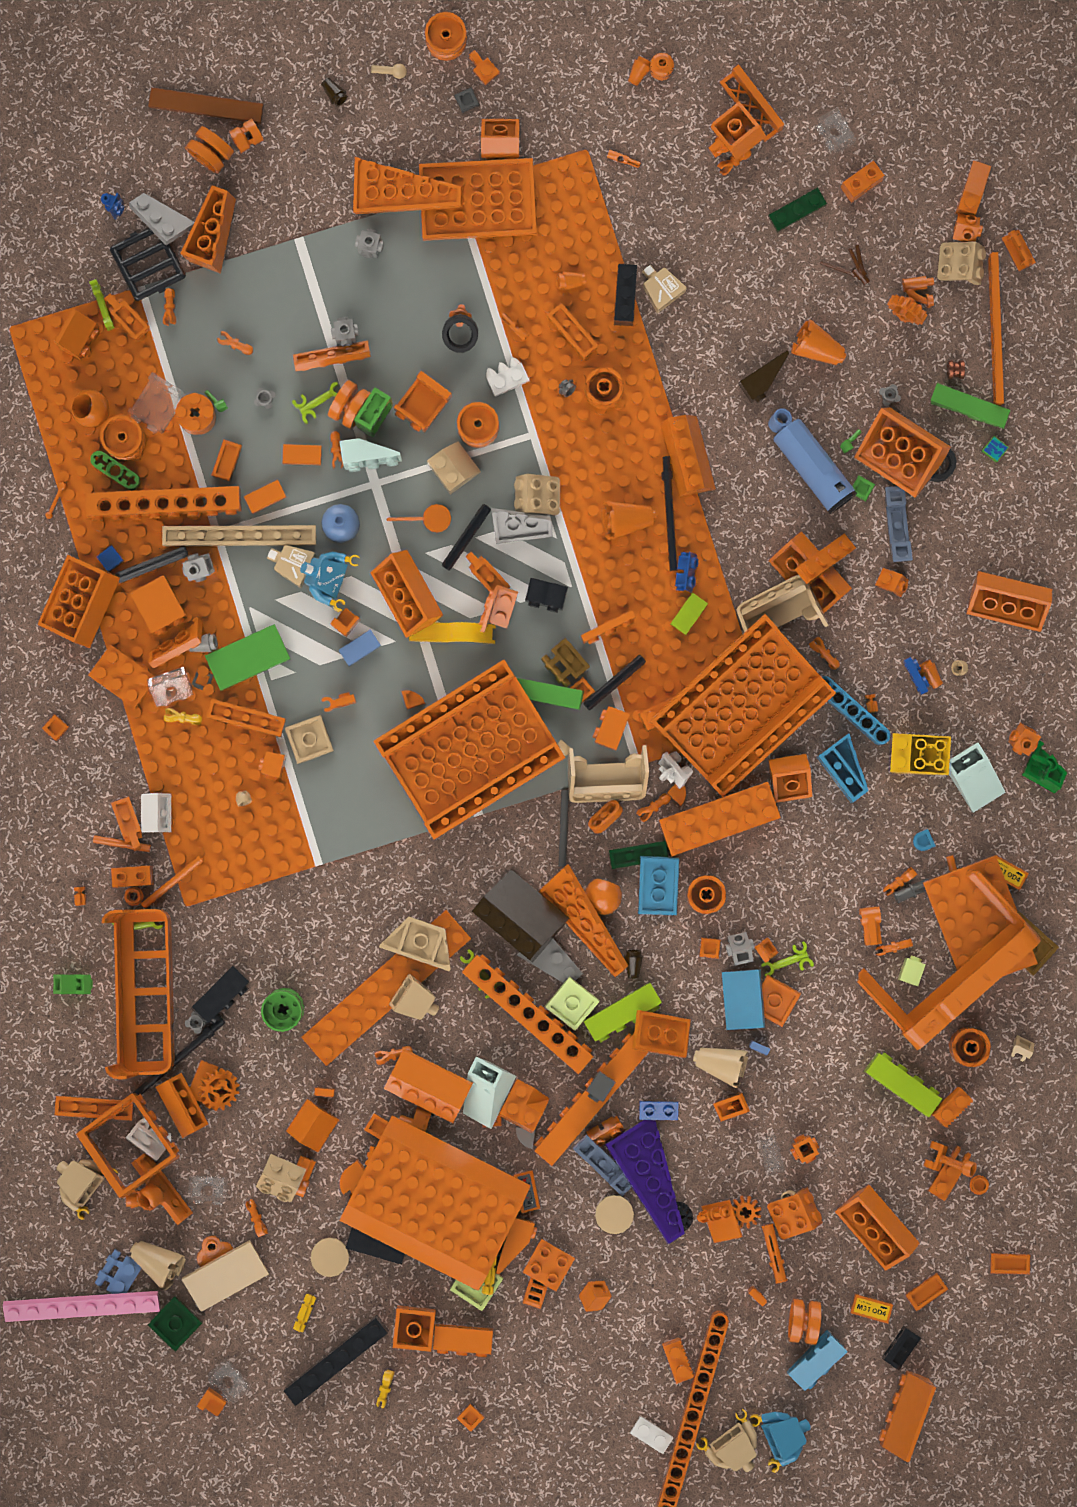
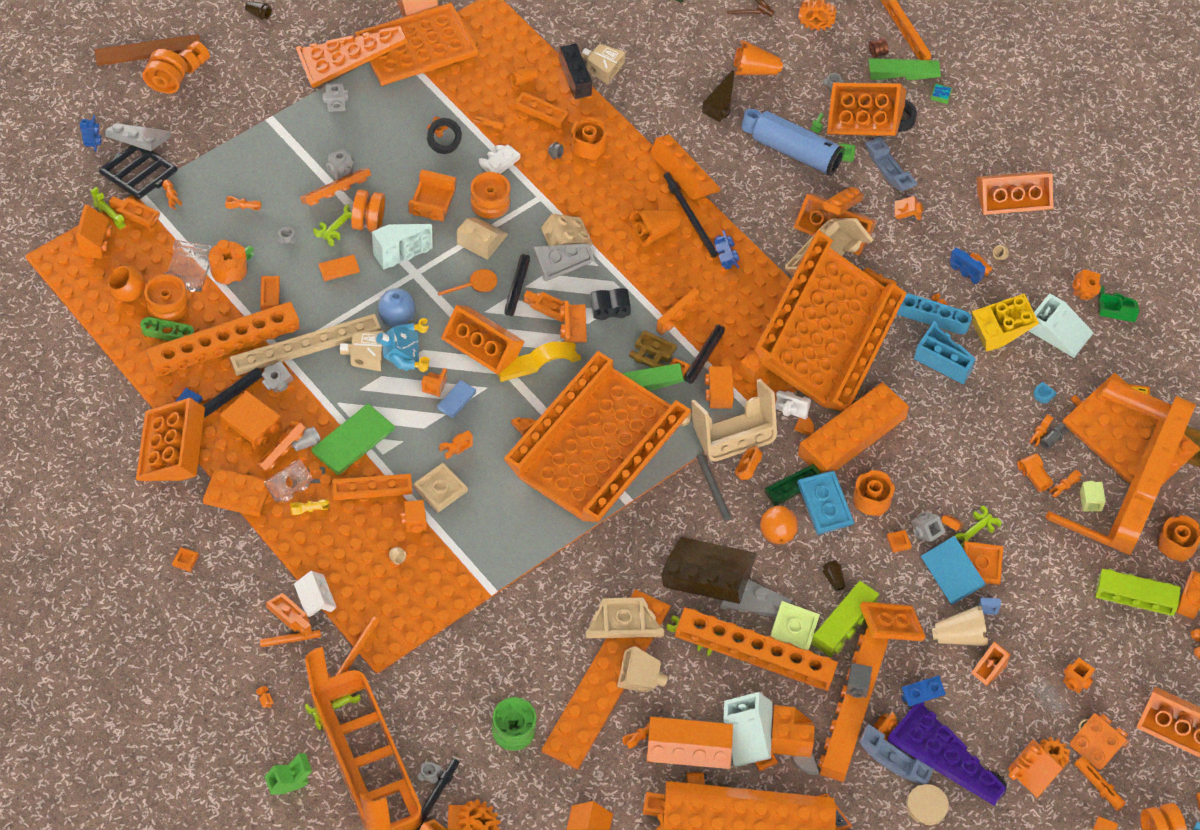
camera: 25 degrees left, 30 degrees down
(62, 486) = (120, 358): orange hinge -> none
(132, 876) = (297, 657): orange brick -> none
(210, 230) = (187, 129): orange wedge -> none
(220, 996) = (445, 735): black brick -> none
(265, 496) = (317, 309): orange tile -> none
(325, 1092) = (587, 789): orange tile -> none
(336, 450) = (369, 254): orange piece -> none
(376, 406) = (393, 203): bright green window -> none
(570, 898) = (775, 552): orange wing -> none
(648, 810) = (789, 442): orange piece -> none
(689, 613) = (745, 282): lime tile -> none
(790, 778) = (902, 377): orange slope -> none

